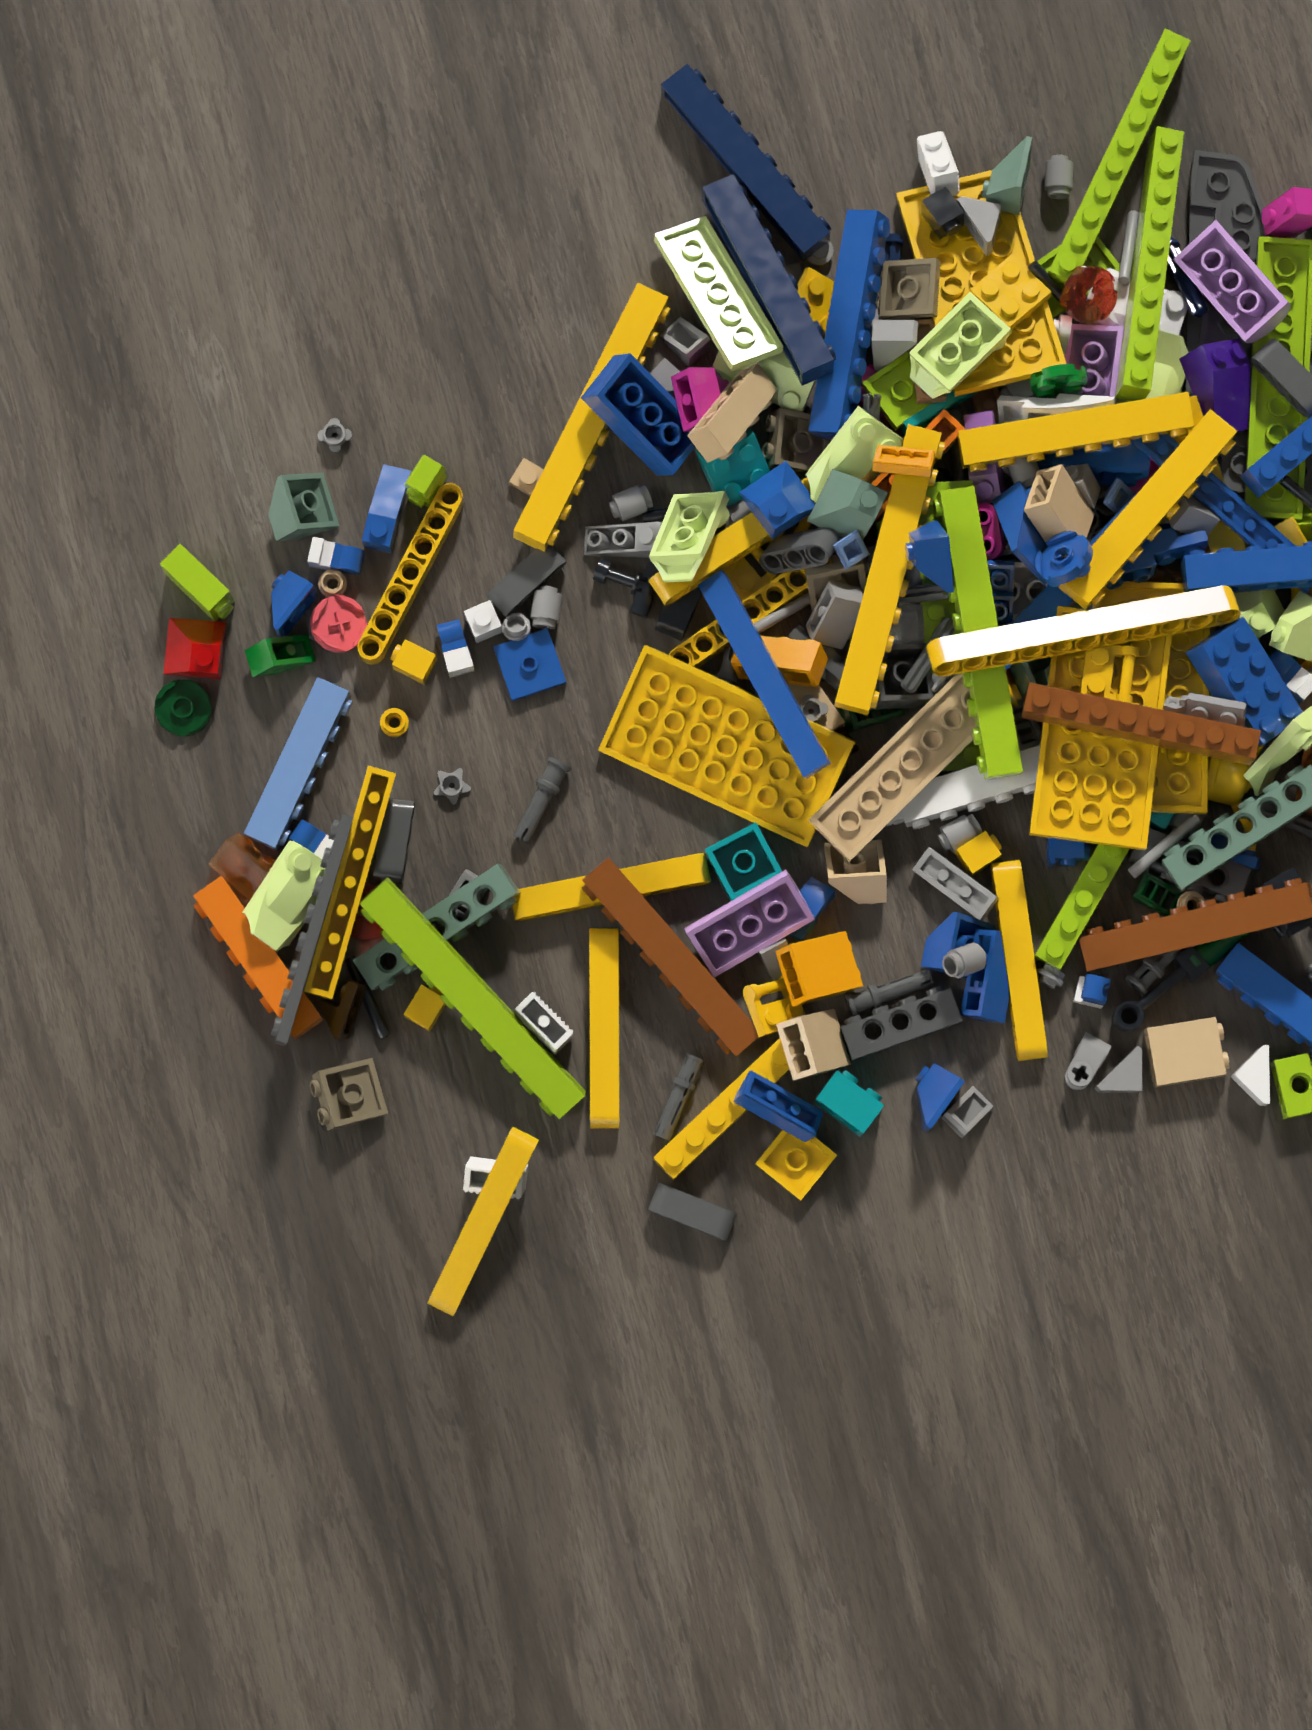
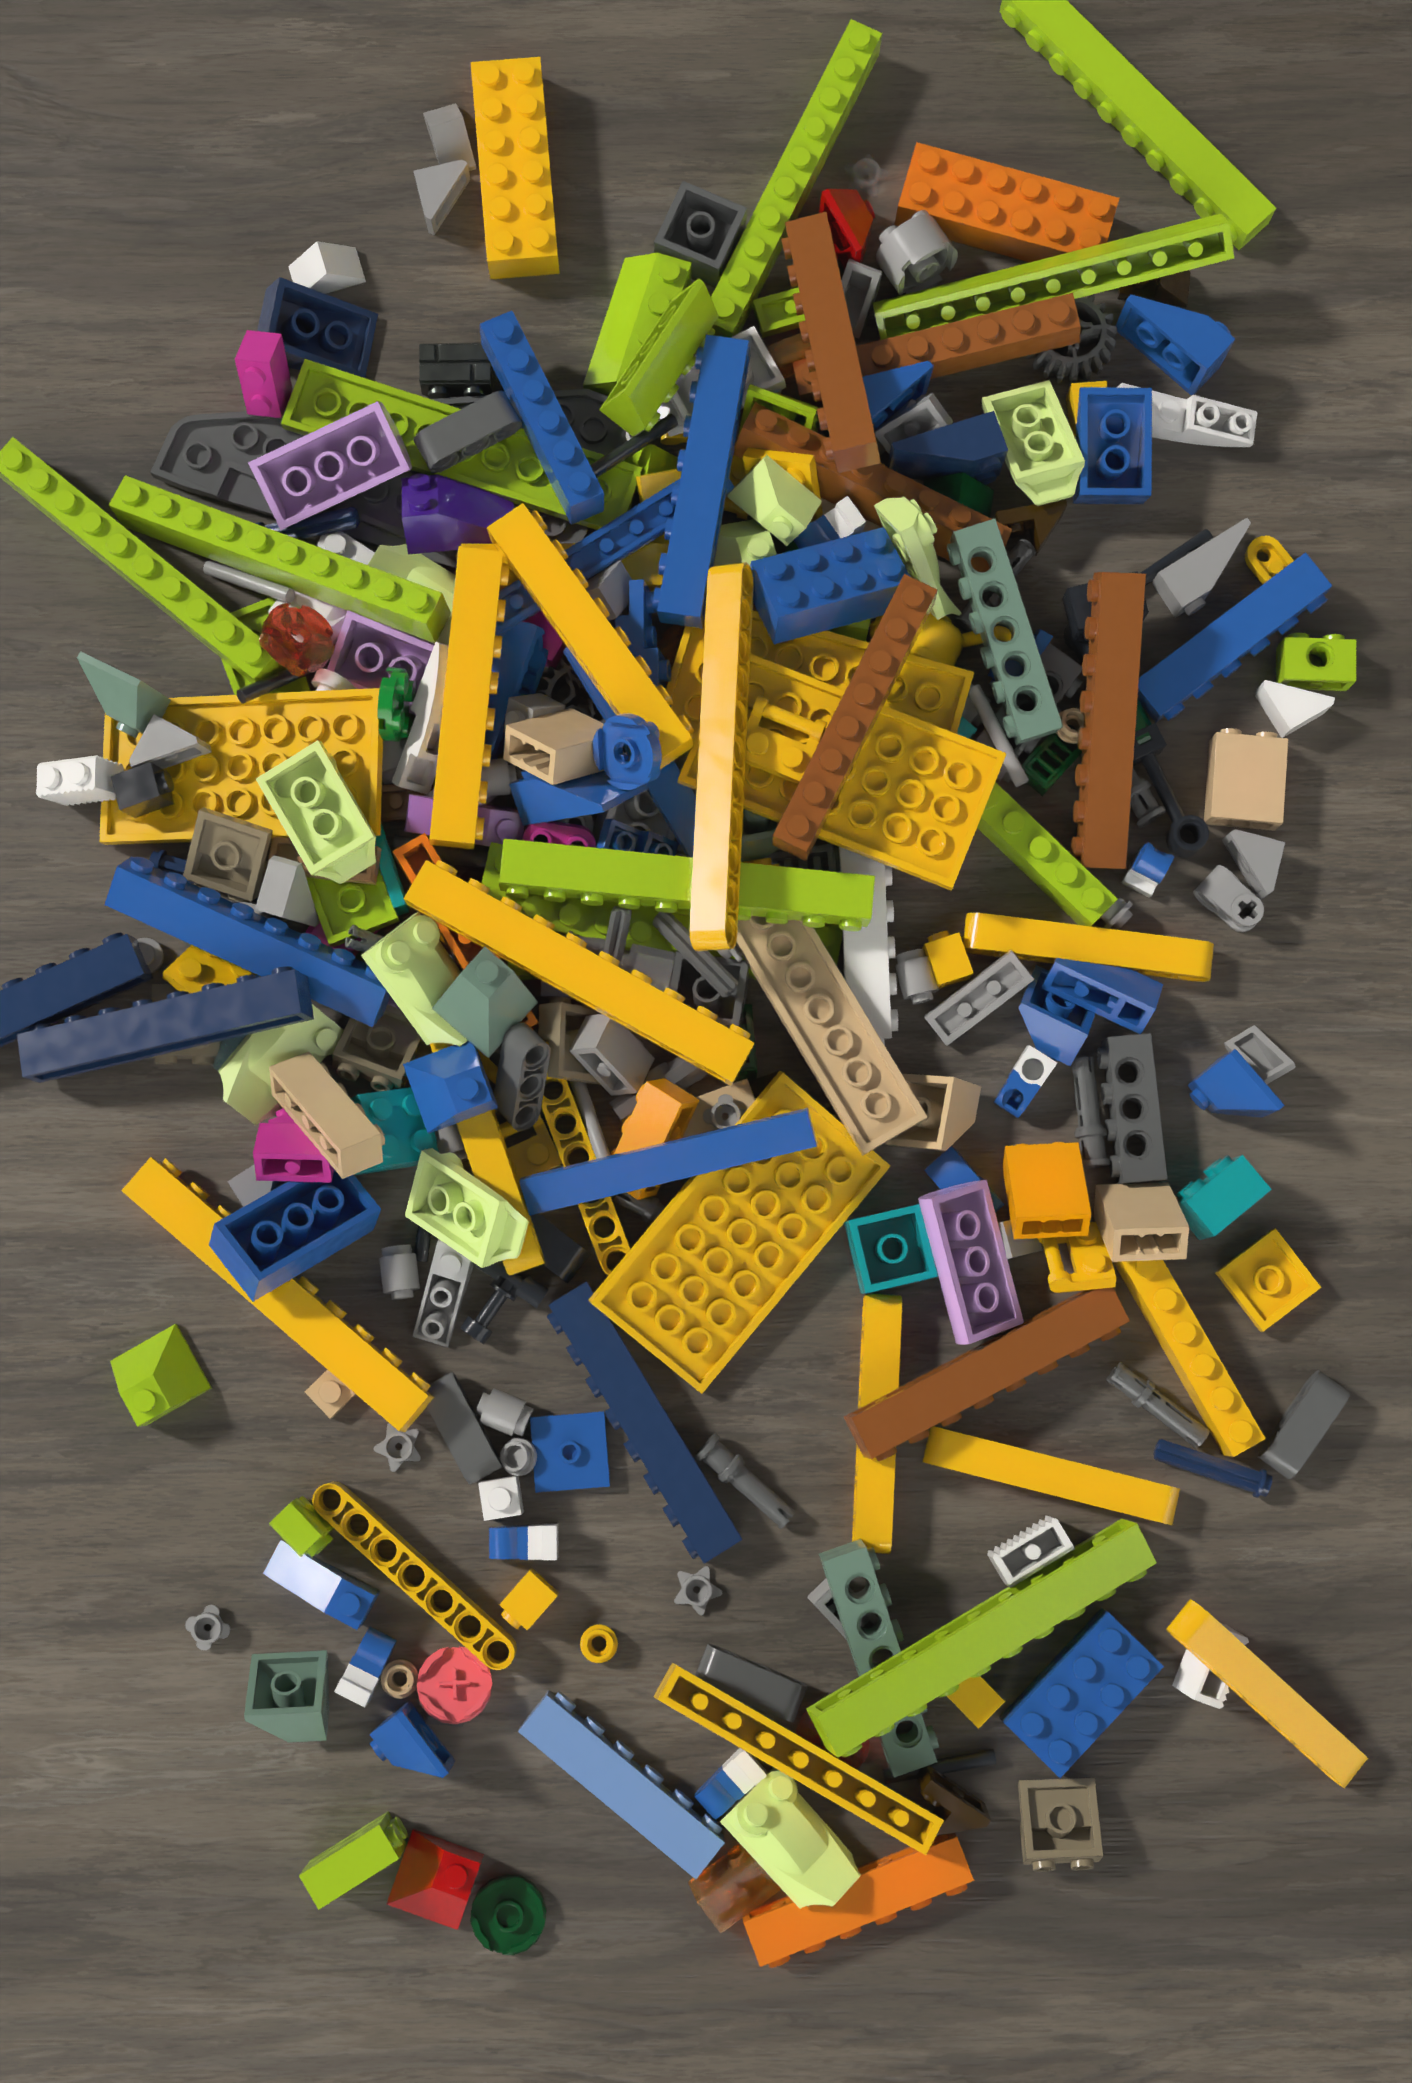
camera: 80 degrees left, 0 degrees up
(279, 655) = (474, 1771): green slope -> none
(314, 917) = (862, 1835): dark grey plate -> none
(448, 1087) = (1081, 1692): none -> blue brick
(497, 531) = (395, 1456): none -> light grey plate
(507, 349) = (158, 1376): none -> lime slope
(565, 714) = (646, 1424): none -> dark blue brick
(641, 1150) = (1214, 1468): none -> dark blue axle
(686, 341) = (212, 1149): light grey slope -> none
(718, 293) = (165, 1092): plate -> none
(779, 1106) = (1206, 1284): blue slope -> none
(851, 549) = (541, 1012): medium blue slope -> none
(900, 935) = (1024, 1081): none -> leg
(904, 461) = (451, 915): light orange plate -> none
(931, 554) = (578, 911): blue slope -> none
(964, 960) = (1085, 1010): light grey brick -> none
(1011, 291) = (266, 731): yellow plate -> none
(1058, 177) = (136, 641): light grey brick -> none
(1066, 852) = (976, 857): blue brick -> none
(1117, 496) = (556, 675): medium blue slope -> none
(1208, 708) = (854, 636): light grey hinge -> none

